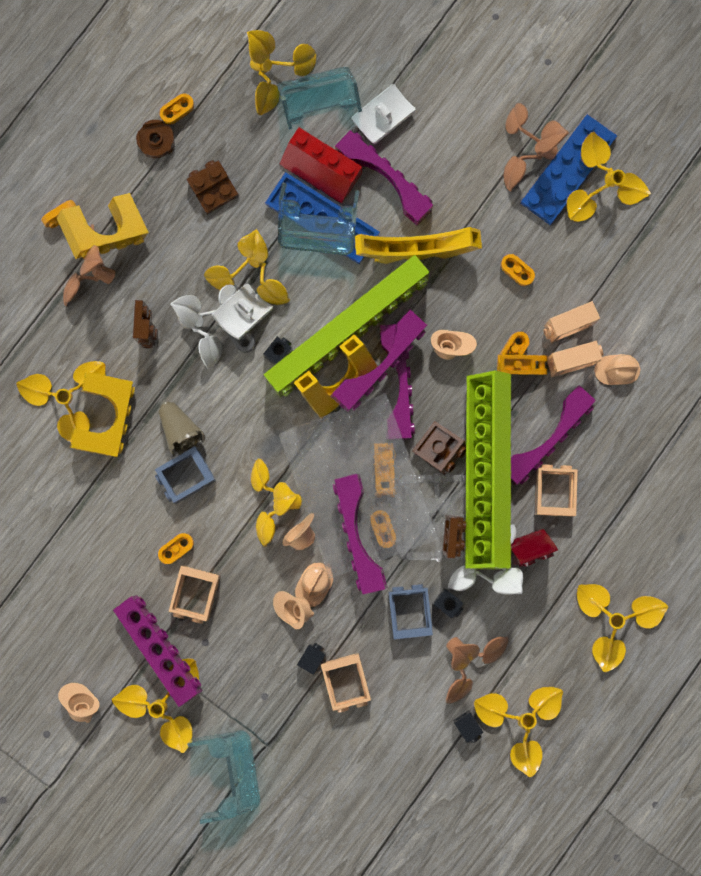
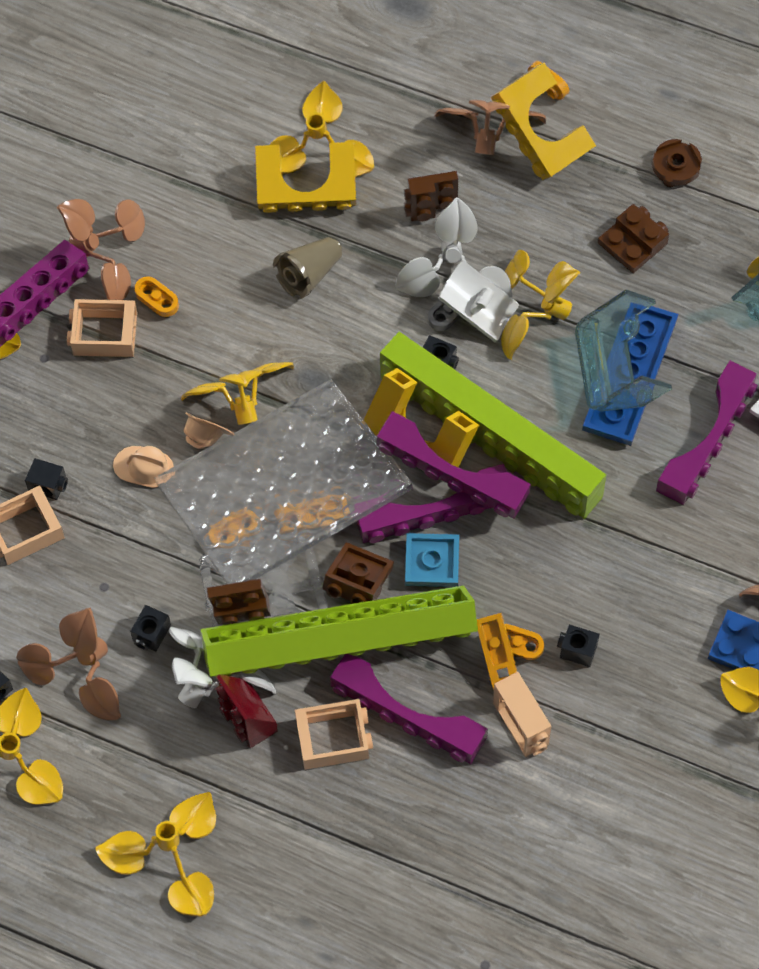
camera: 75 degrees right, 20 degrees down
(115, 595) = (78, 220): none -> nougat plant
(175, 107) = (724, 177): light orange plate -> none
(203, 467) = (267, 302): sand blue window -> none
(292, 609) = (106, 444): light nougat piece -> none
(320, 165) = (701, 354): red slope -> none
(370, 574) = (171, 512): magenta arch -> none
(412, 632) = (123, 564): sand blue window -> none
(438, 393) = (432, 560): none -> dark azure plate
(440, 245) = (621, 489): yellow arch -> none
(452, 344) = (503, 557): light nougat piece -> none
(518, 269) = (629, 626): light orange plate -> none
(530, 301) = (578, 655): none -> black brick
(571, 322) = (572, 700): light nougat window -> none
(617, 369) = (526, 788): light nougat piece -> none

